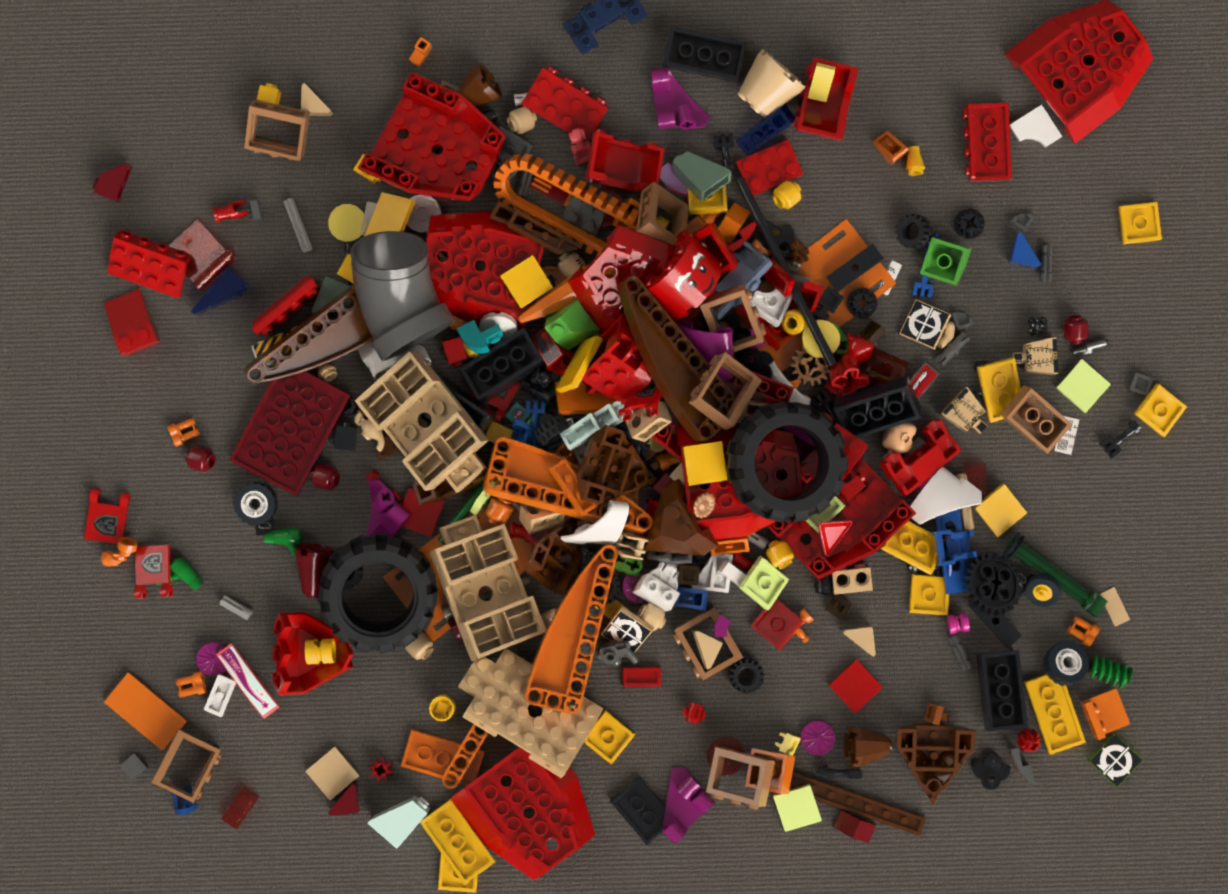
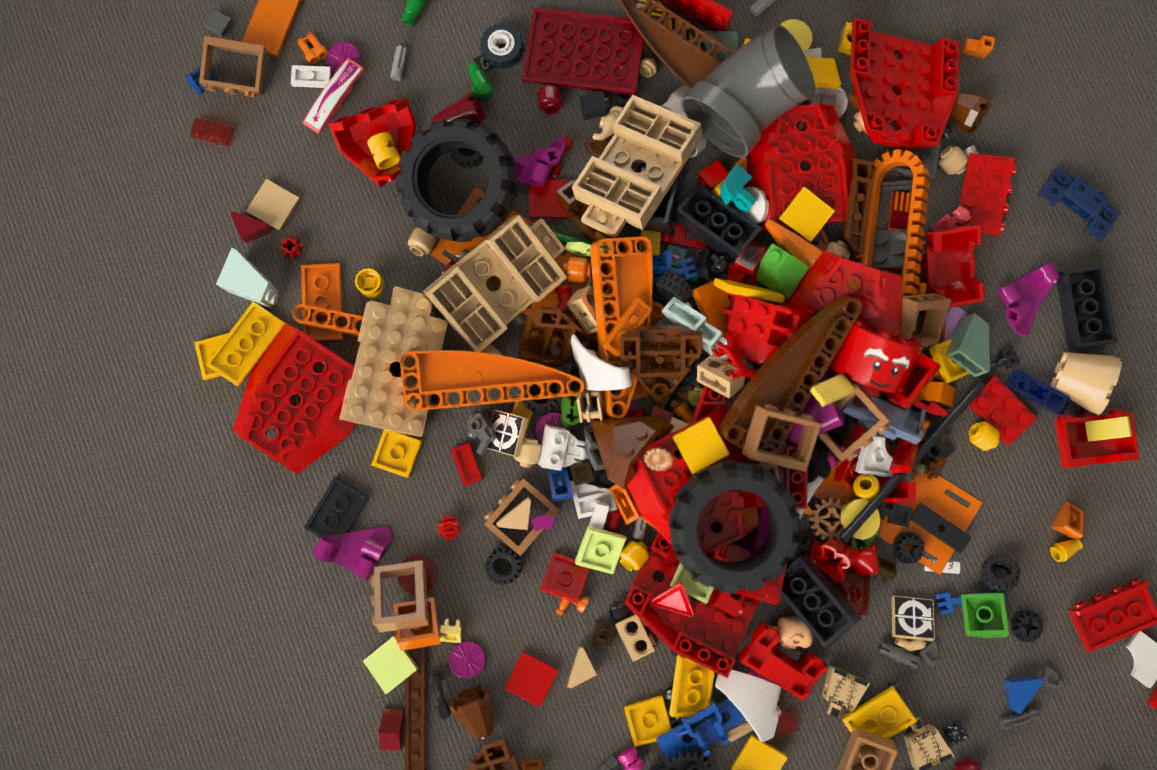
camera: 60 degrees right, 5 degrees down
(698, 328) = (832, 390): none -> light yellow tile
(923, 378) = (860, 637): slope -> none

